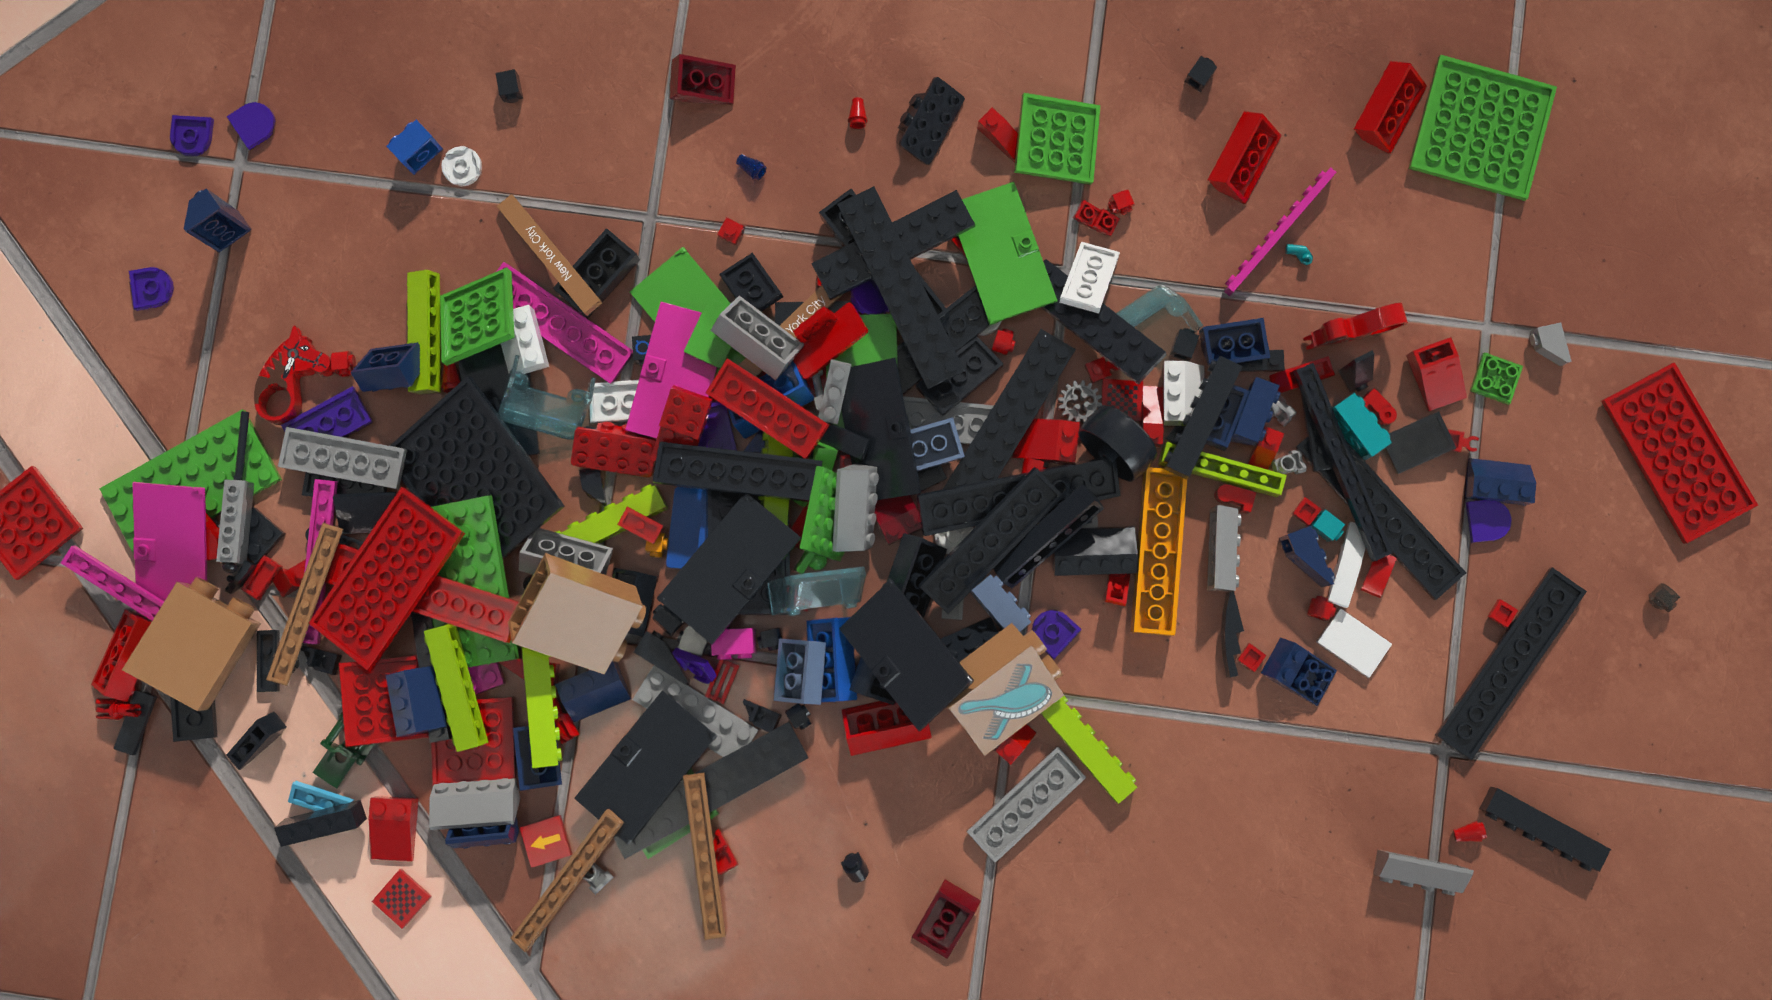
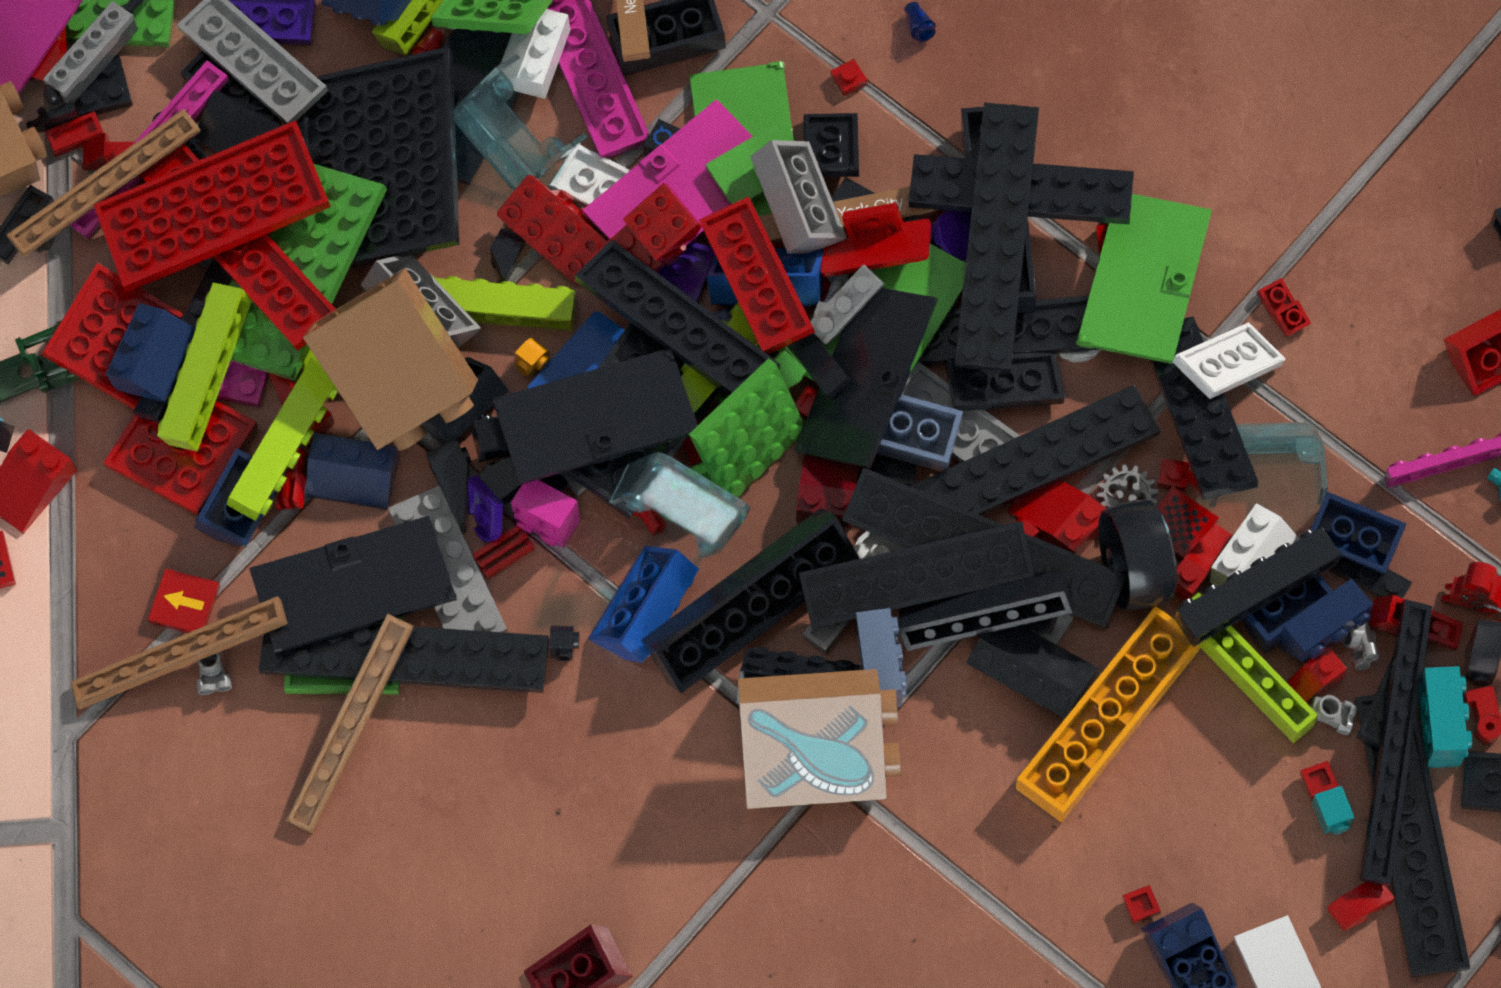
camera: 30 degrees right, 15 degrees down
(321, 660) = (76, 257): black slope -> none
(473, 804) = (136, 505): light grey slope -> none
(482, 836) = (124, 542): dark blue slope -> none
(640, 525) = (529, 320): red plate -> none
(724, 856) = (371, 743): red slope -> none
(761, 716) = (519, 615): black slope -> none
(769, 639) = (589, 537): black plate -> none
(799, 671) = (598, 588): sand blue brick -> none
(855, 508) = (782, 445): light grey slope -> none
(855, 867) = (512, 848): black plate -> none
(857, 115) = (1078, 36): red cone -> none
(879, 727) = (657, 713): red slope -> none
(906, 655) = (730, 627): black door -> none
(929, 119) = (1158, 89): black bracket -> none
(999, 132) = (1233, 157): red slope -> none
(1003, 341) = (1081, 376): red plate -> none
(1015, 744) = (793, 825): red slope -> none
(1026, 804) = (760, 904): light grey plate -> none
(1055, 631) = (924, 733): dark purple tile -> none
(1057, 138) = (1293, 192): bright green plate -> none
(1089, 750) = (875, 886): lime brick -> none
(1117, 589) = (1031, 725): red slope -> none
(1121, 202) = (1324, 306): red plate -> none
(1184, 344) = (1295, 504): black brick -> none
(1223, 549) = (1188, 758): light grey slope -> none
(1230, 626) = (1137, 856): black slope -> none
(1235, 495) = (1251, 717): red leg -> none
(1304, 551) = (1281, 818): dark blue slope -> none
(1320, 608) = (1263, 900): red plate -> none
(1348, 567) = (1324, 873): white slope -> none

